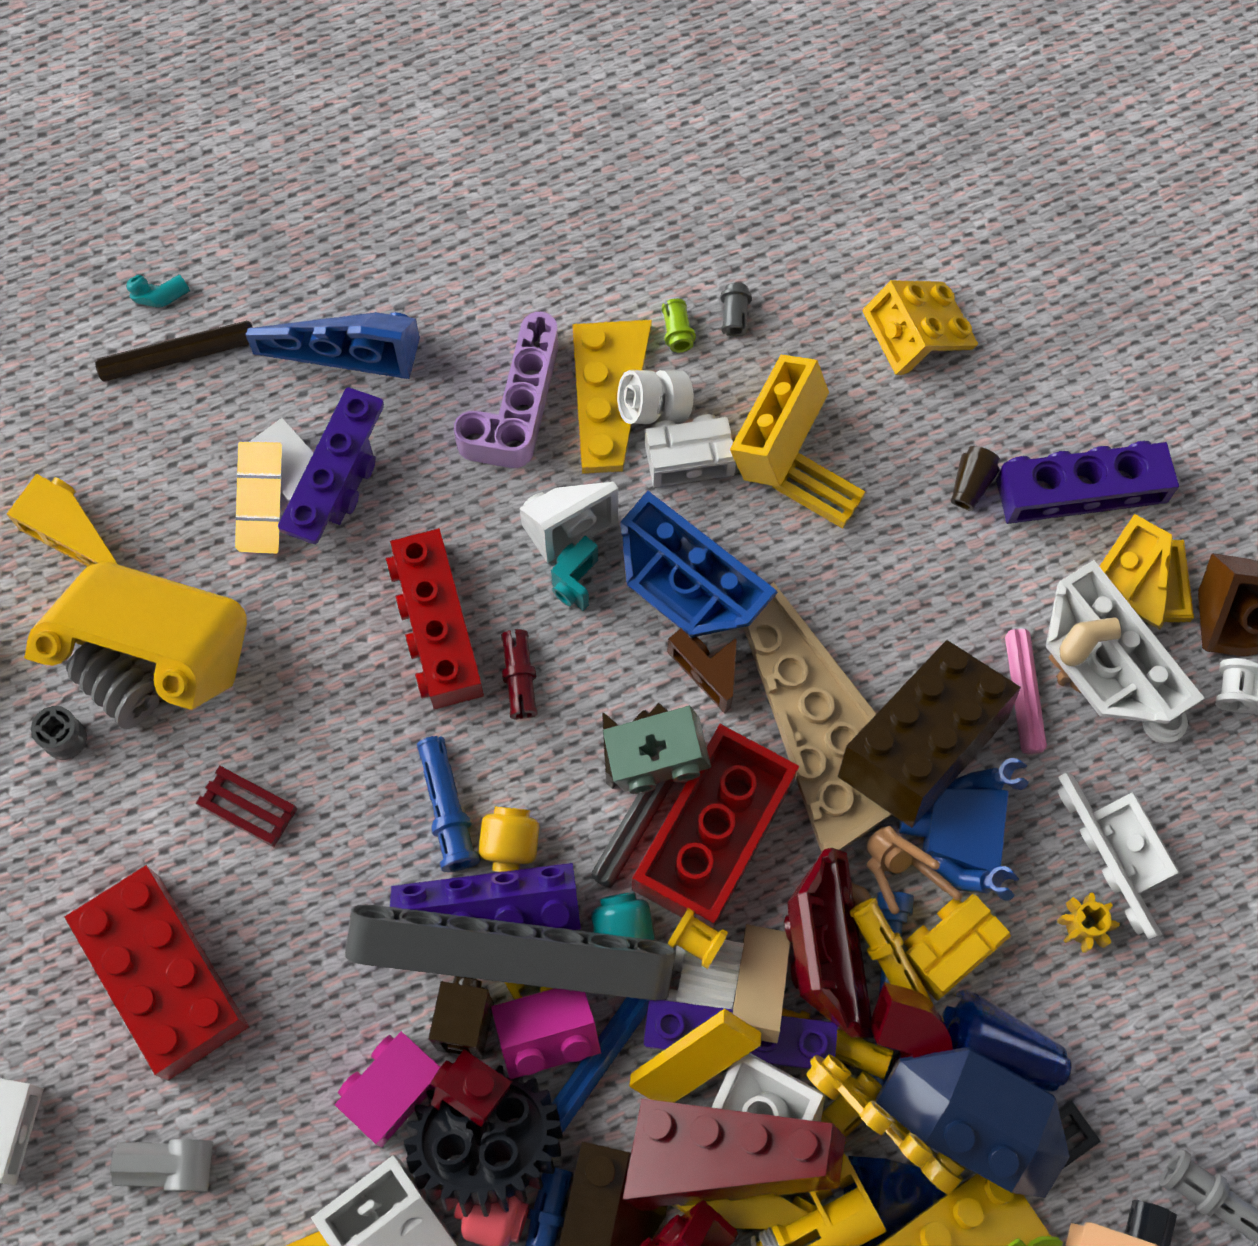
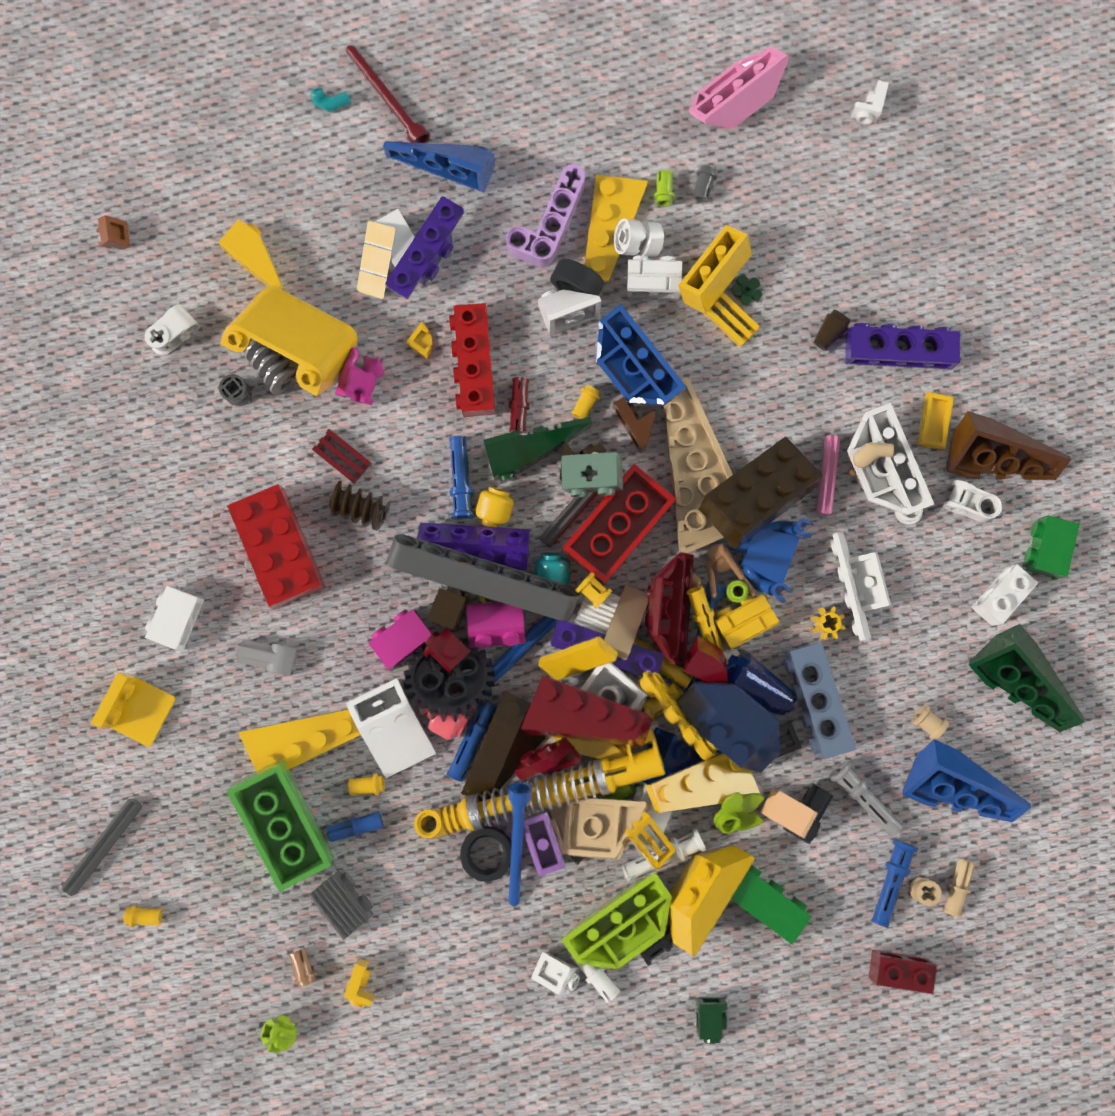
camera: 10 degrees right, 15 degrees up
(172, 351) = (335, 145): dark brown axle -> none
(254, 682) = (358, 382): none -> dark pink animal
(285, 880) = (358, 507): none -> dark brown piece
(288, 309) = (415, 132): none -> dark red piece
(348, 606) = (421, 341): none -> yellow tile
(527, 745) = (514, 453): none -> dark green wedge
(570, 568) = (564, 341): teal bracket -> none
(571, 464) = (576, 277): none -> black tyre
(623, 650) = (585, 402): none -> yellow pin
(760, 175) = (740, 89): none -> bright pink wedge
(833, 445) = (747, 289): none -> dark green plant
(915, 320) = (821, 215): yellow bracket -> none
(935, 892) = (742, 588): none -> lime pin
(951, 171) = (872, 108): none -> white bracket
(1141, 568) = (919, 412): yellow wing -> none
(1160, 1109) = (840, 738): none -> sand blue brick

